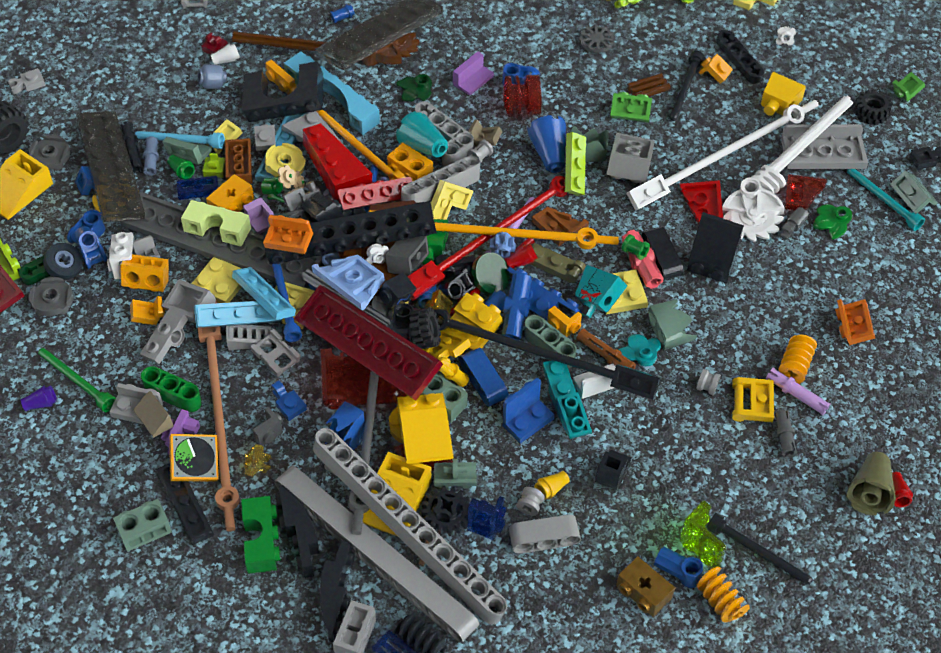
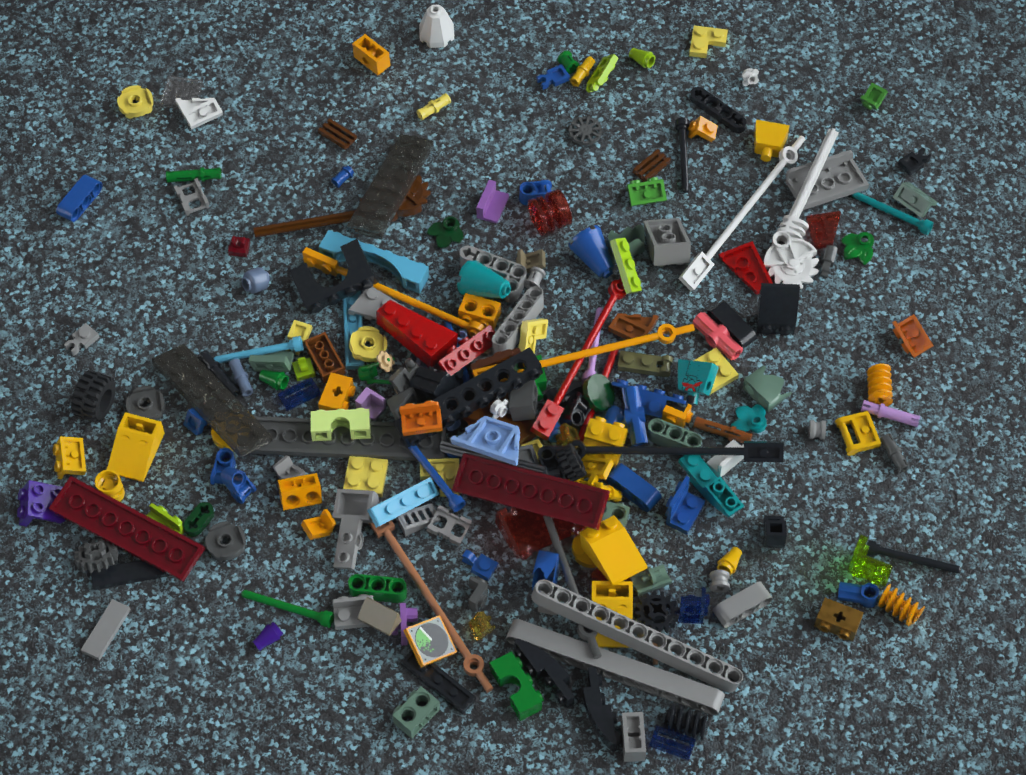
camera: 20 degrees left, 5 degrees up
(59, 269) = (217, 496): black bush -> none
(119, 251) = (270, 479): white bracket -> none
(225, 55) = (256, 253): white cone -> none
(263, 293) = (416, 476): medium azure tile -> none
(264, 137) = (337, 326): light grey bracket -> none
(396, 290) = (534, 437): black brick -> none
(502, 244) = (598, 363): medium blue gear -> none
(523, 256) = (618, 368): red cone -> none
(635, 247) = (711, 329): green bush -> none
(870, 114) = (851, 118): black tyre -> none
(873, 486) = (979, 474): olive cone -> none
(902, 491) = (1000, 473): red cone -> none

